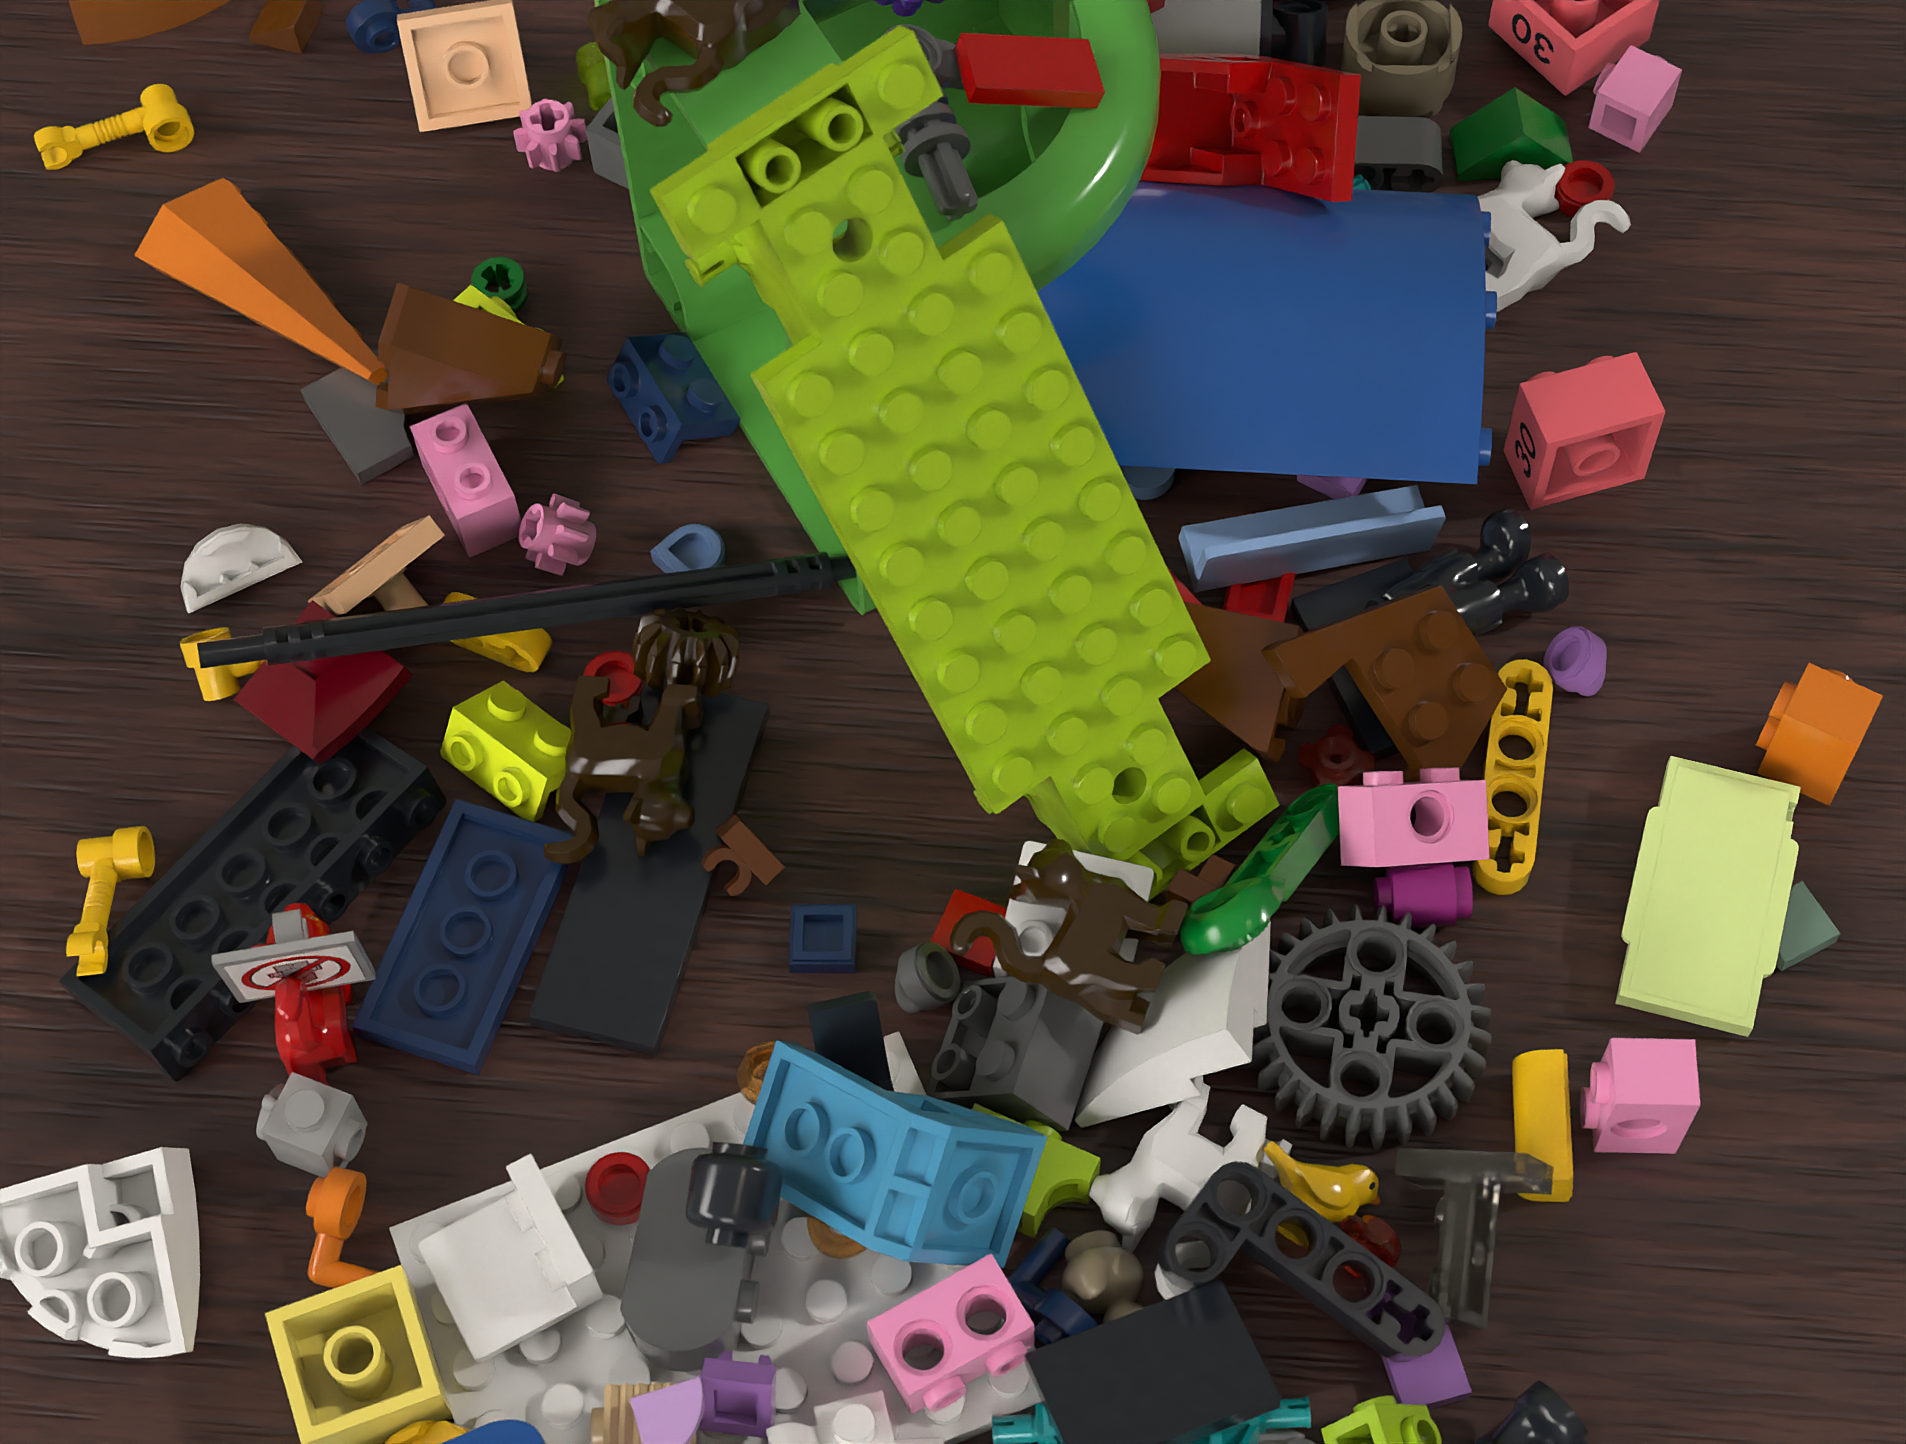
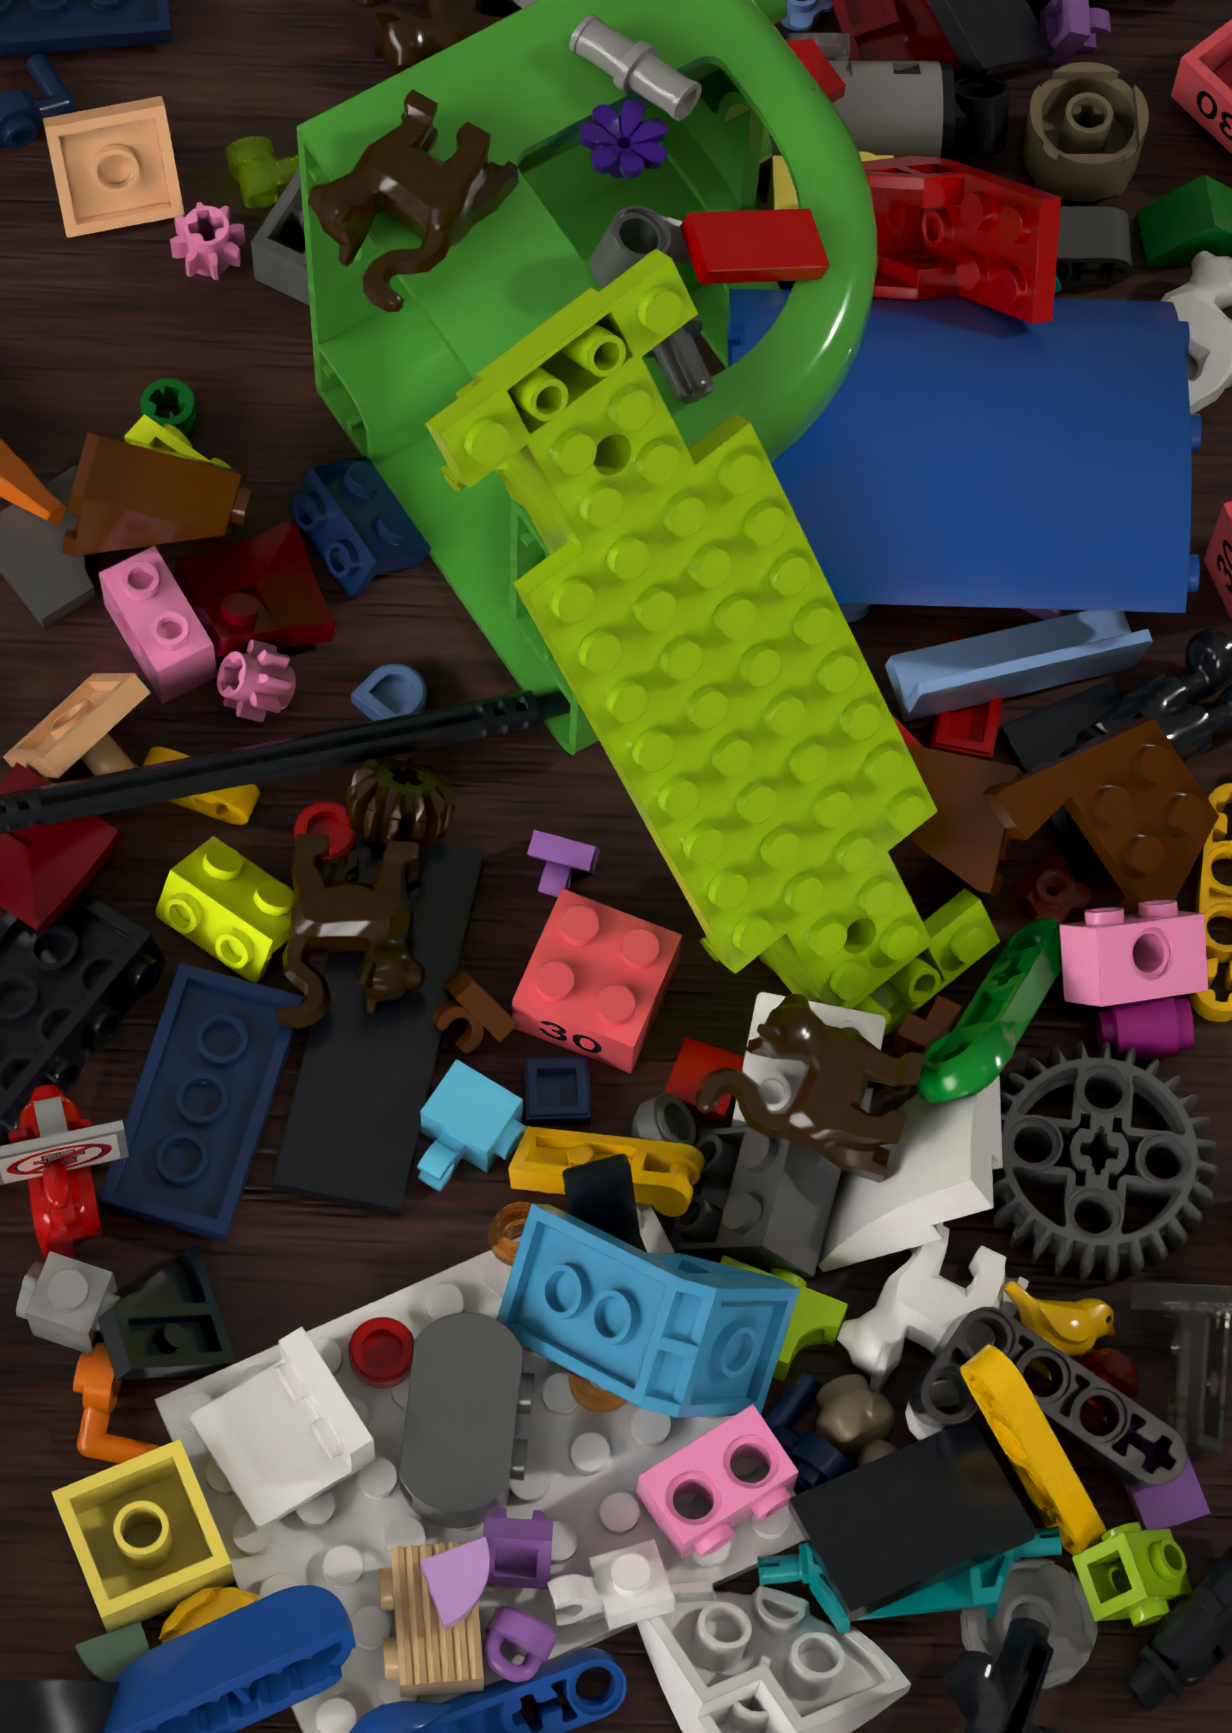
camera: 10 degrees left, 5 degrees up
(406, 1152) = (168, 1325): none -> black wing
(567, 453) = (257, 592): none -> dark red plate
(728, 962) = (468, 1121): none -> medium azure brick
(733, 1193) = (504, 1358): black head -> none
(843, 712) = (561, 859): none -> medium lavender tile
(868, 830) = (596, 980): none -> coral brick
(909, 1016) = (659, 1169): none -> yellow plate
(1281, 1311) = (1032, 1449): none -> yellow beam

